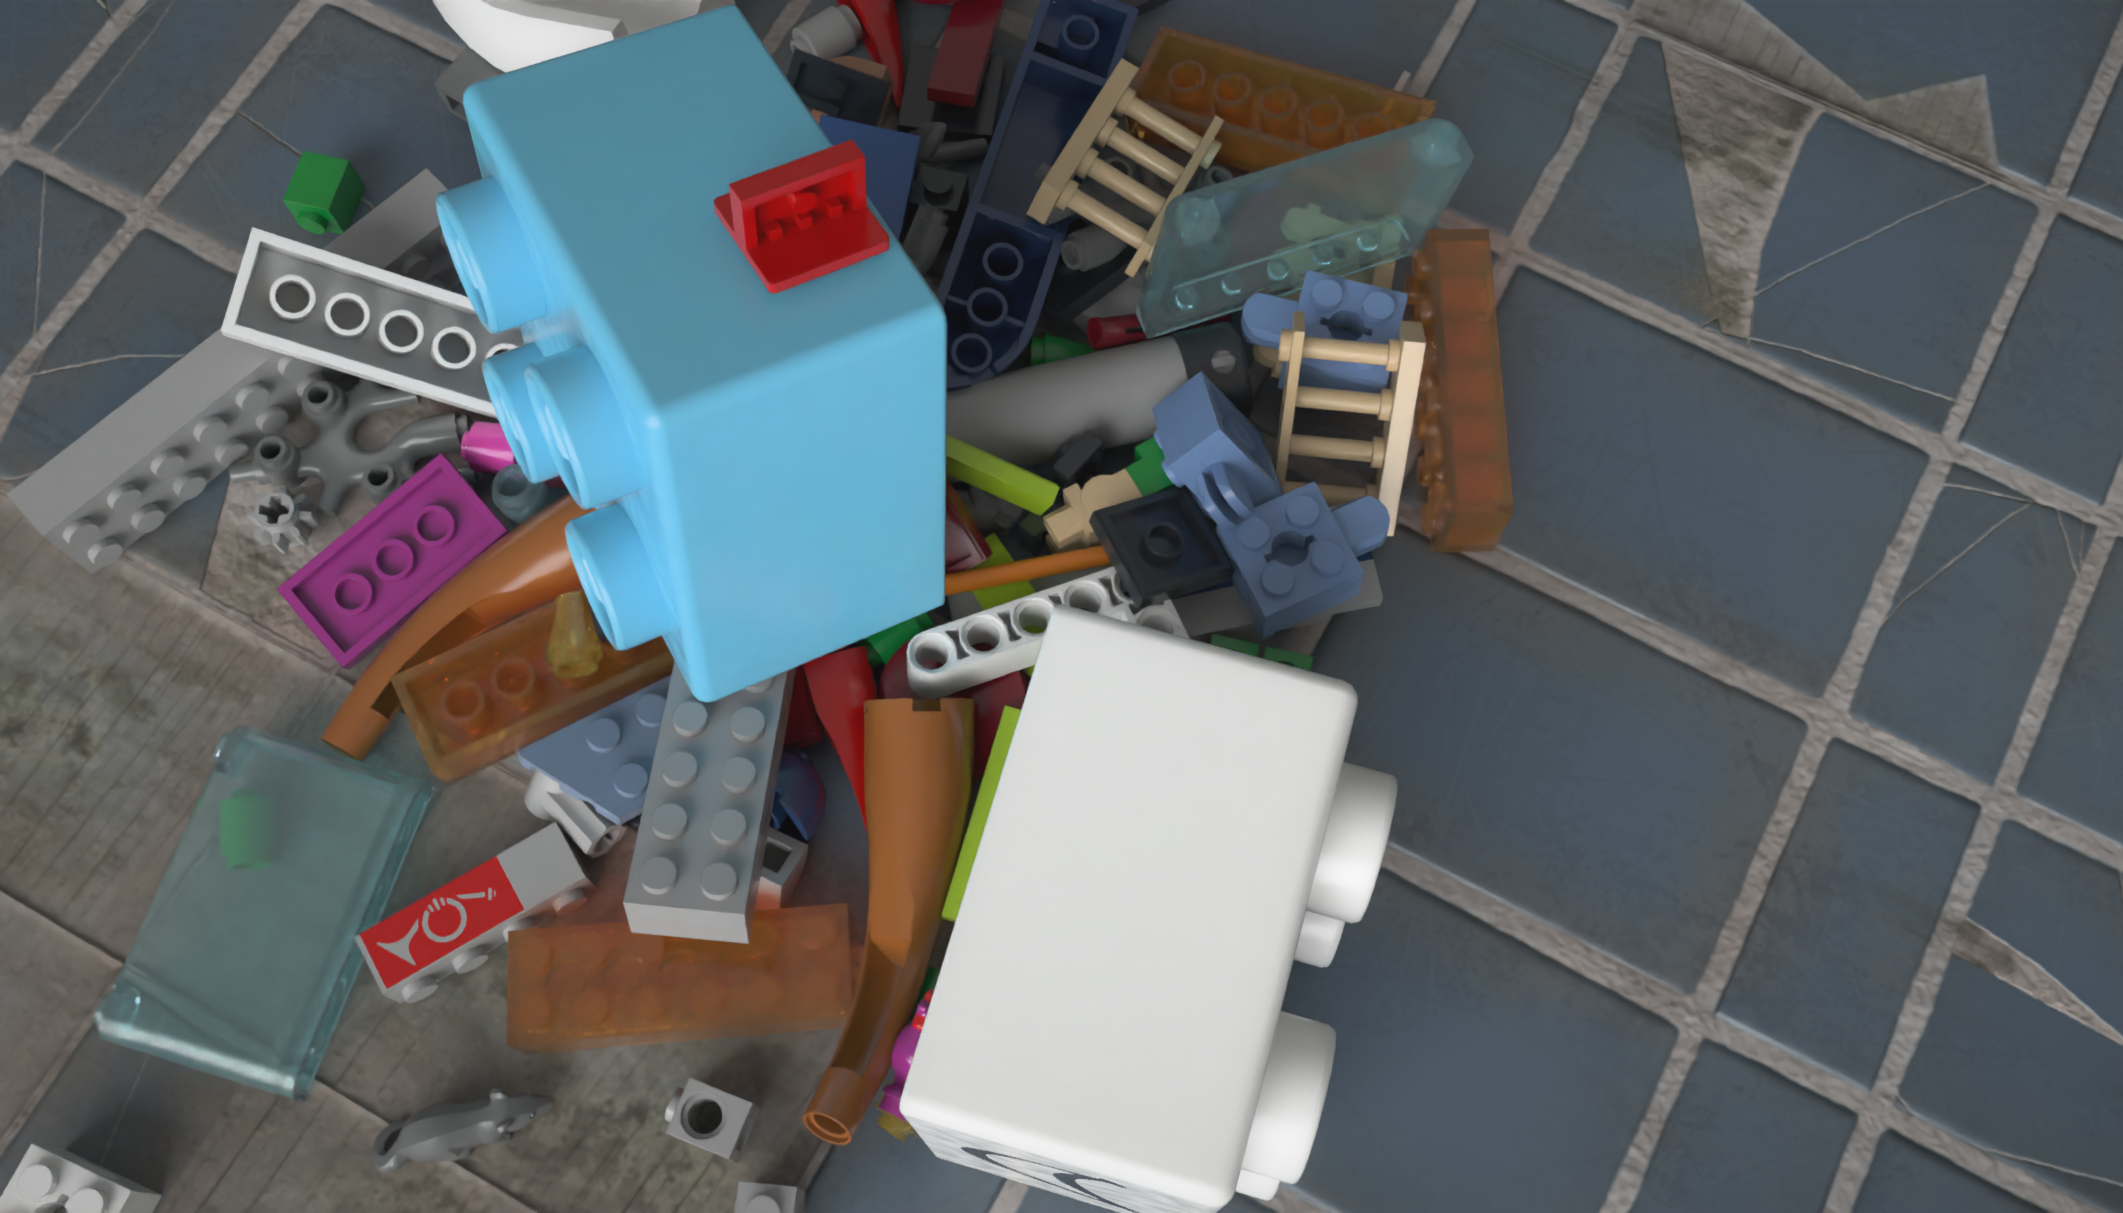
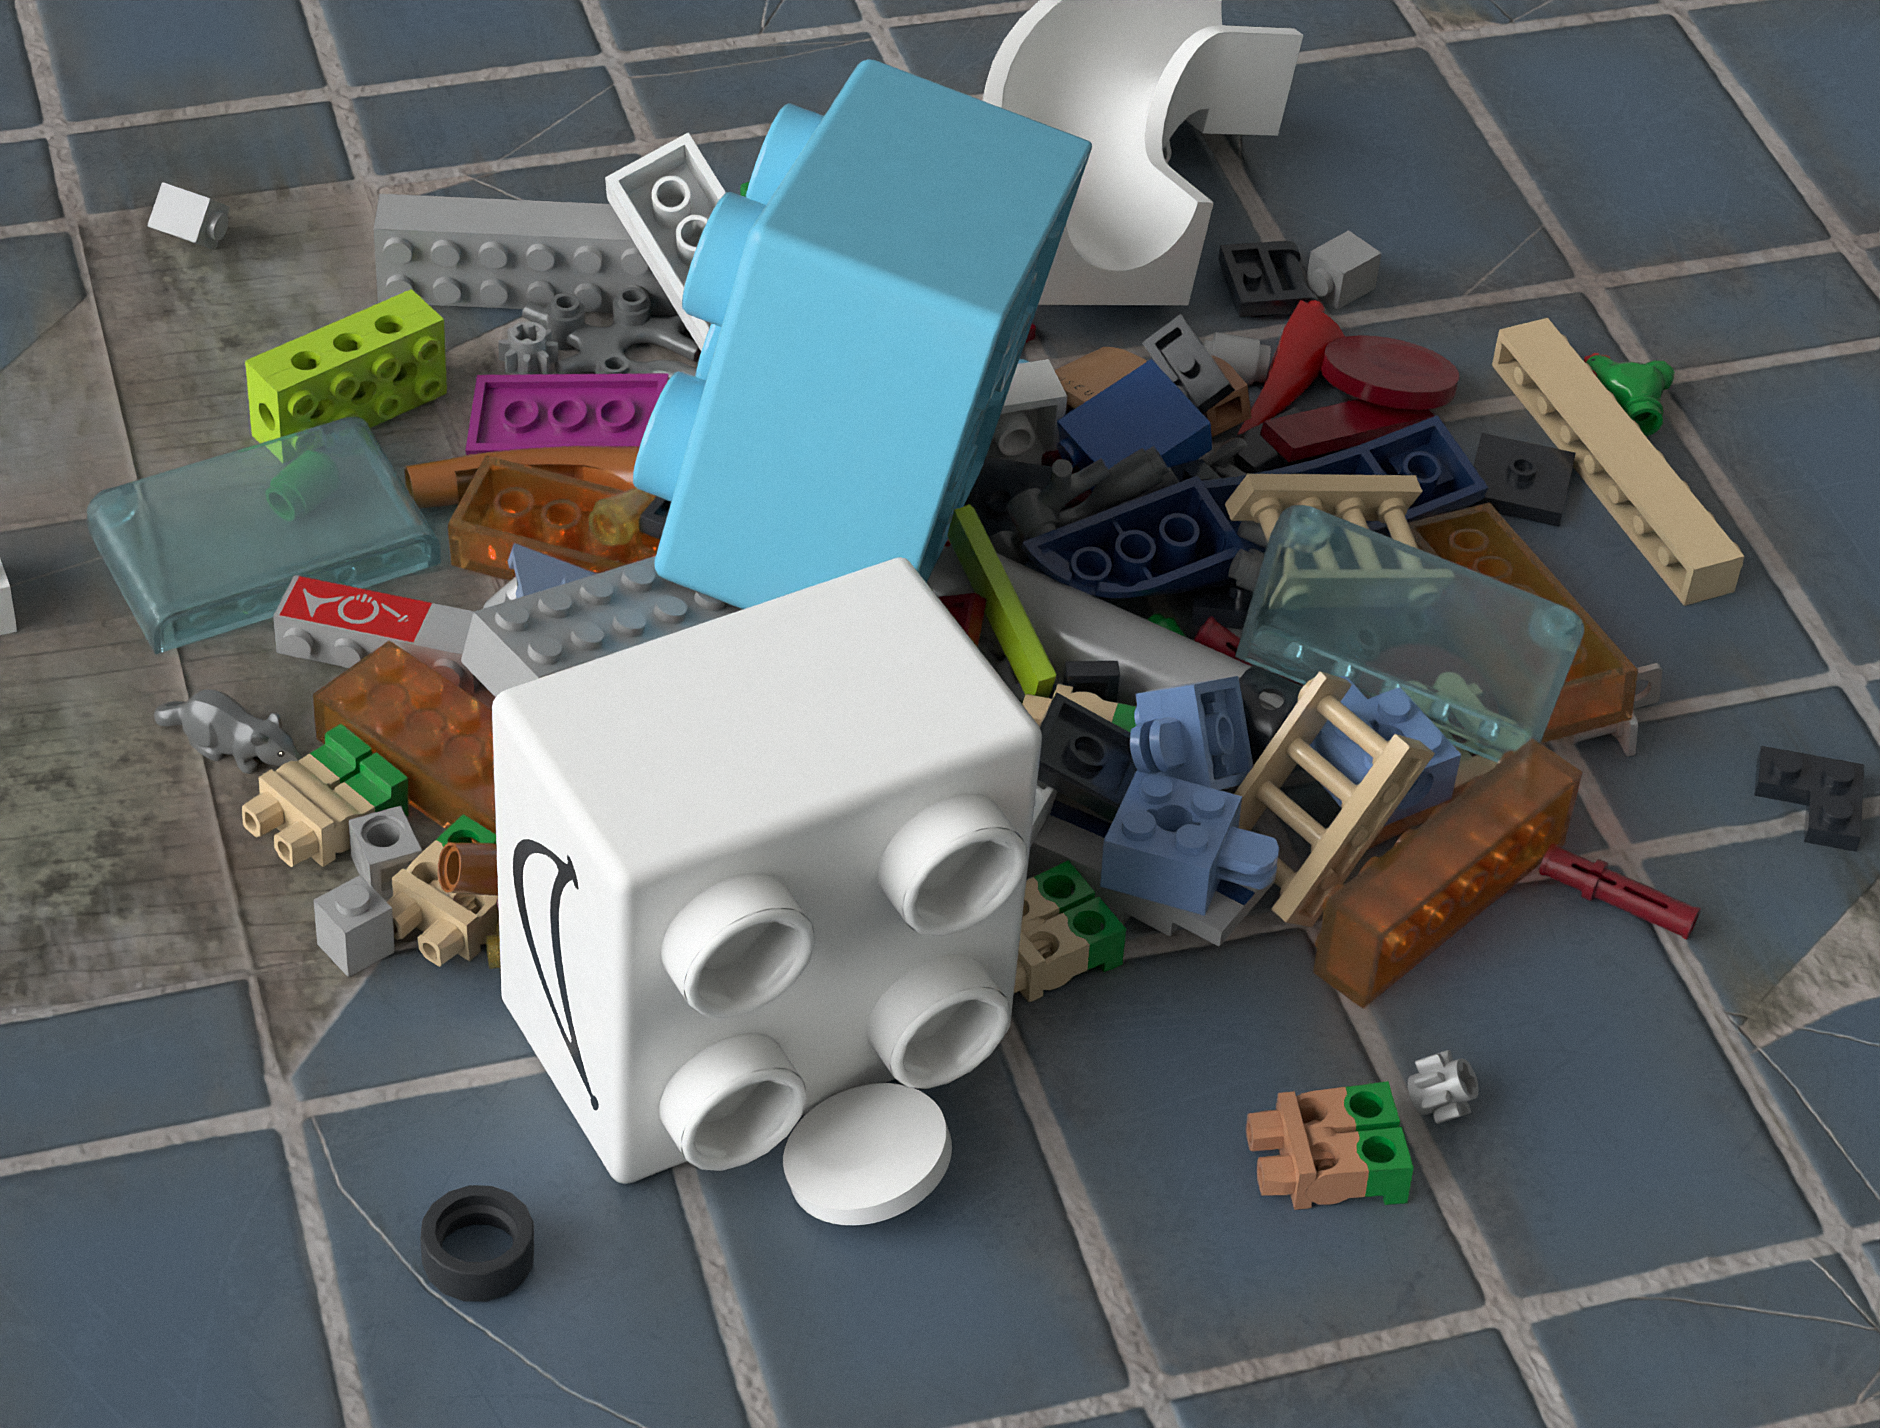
camera: 40 degrees right, 25 degrees down
(158, 690) = (355, 367): none -> lime brick
(611, 1118) = (320, 794): none -> tan hips
(783, 1097) = (448, 920): none -> tan hips
(803, 217) = (972, 212): red bracket -> none
(1375, 1023) = (867, 1154): none -> white piece
(1579, 73) = (1825, 785): none -> black plate
(1604, 717) = (1332, 1146): none -> nougat hips
(1605, 279) = (1619, 891): none -> dark red pin
(1628, 578) = (1443, 1086): none -> light grey gear

